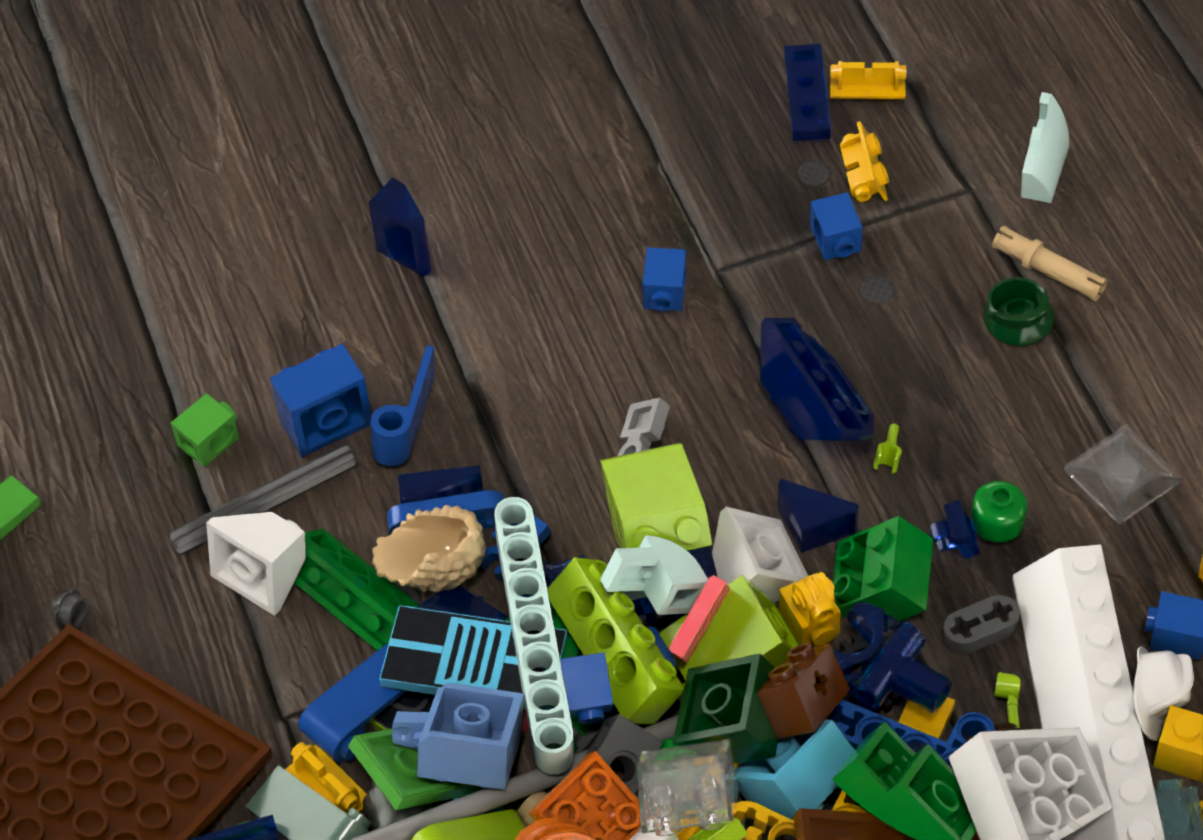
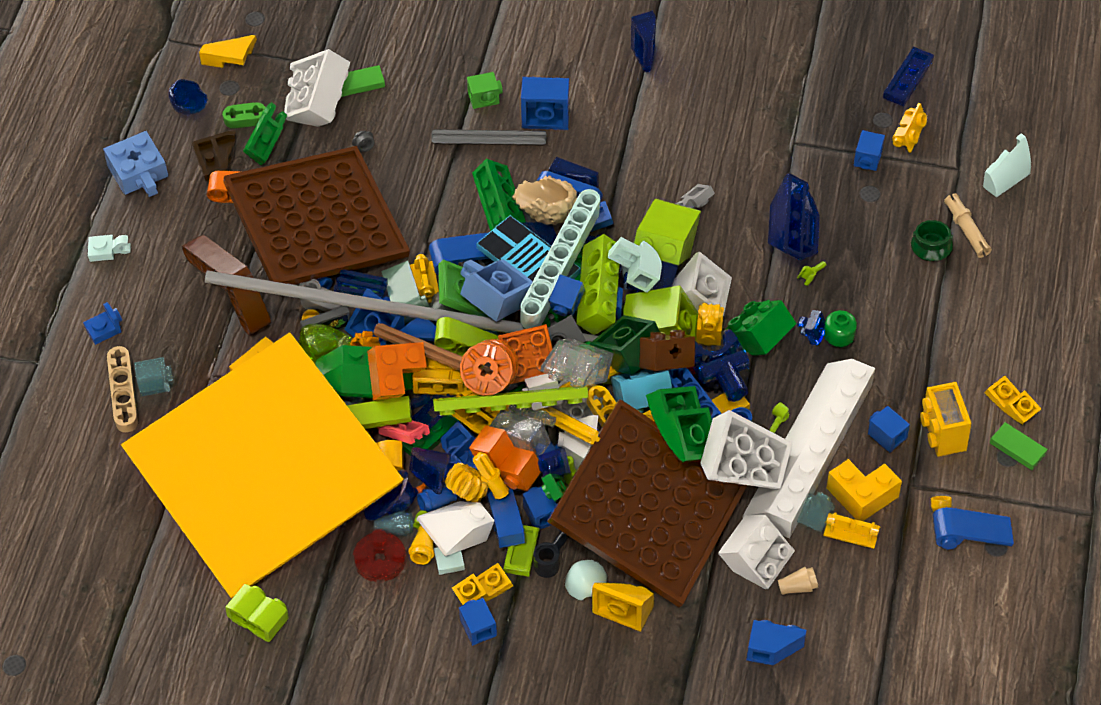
camera: 30 degrees right, 0 degrees up
(256, 556) = (463, 159): white slope -> none
(396, 426) = (573, 136): blue door -> none
(664, 279) = (760, 132): blue brick -> none
(699, 618) = (643, 294): coral tile -> none
(815, 516) = (747, 283): clear blue slope -> none
(855, 81) = (946, 88): yellow hinge -> none
(982, 627) = (791, 377): dark grey beam -> none
(1122, 474) = (923, 346): clear slope -> none
(1160, 682) = (850, 445): white piece -> none

